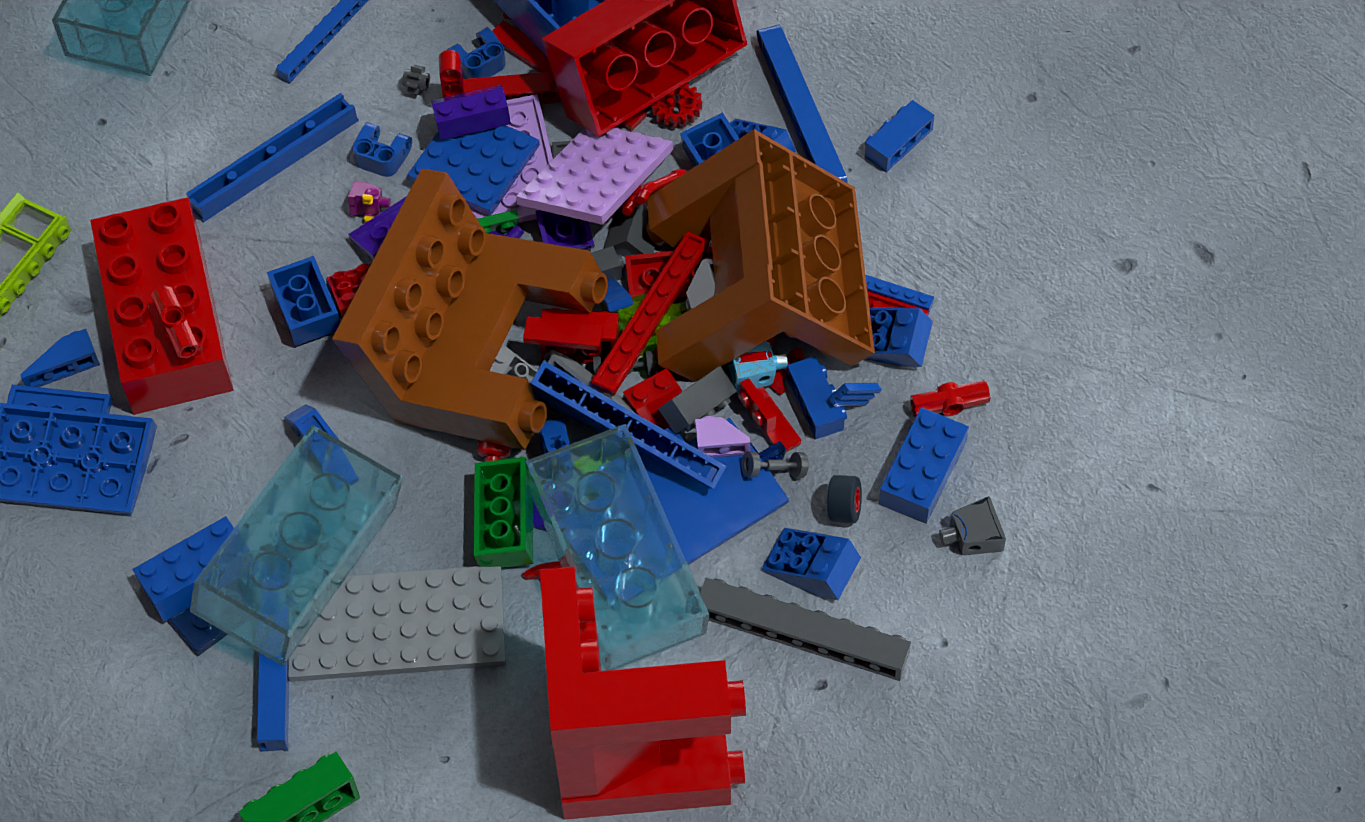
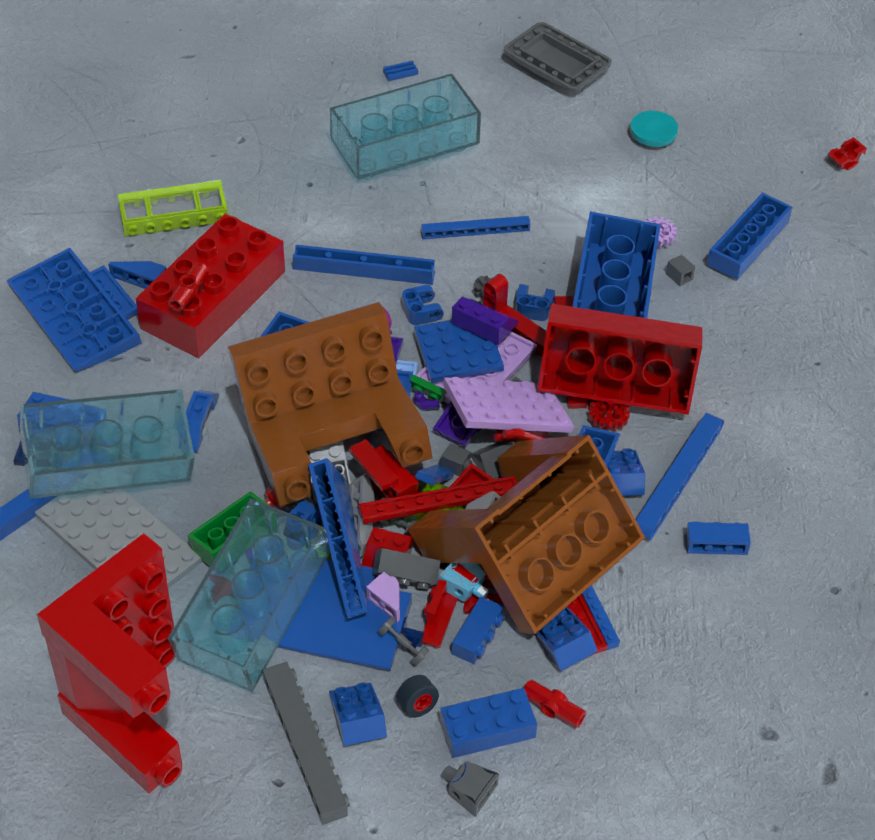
camera: 45 degrees right, 10 degrees down
(855, 394) = (497, 646): blue tile -> none

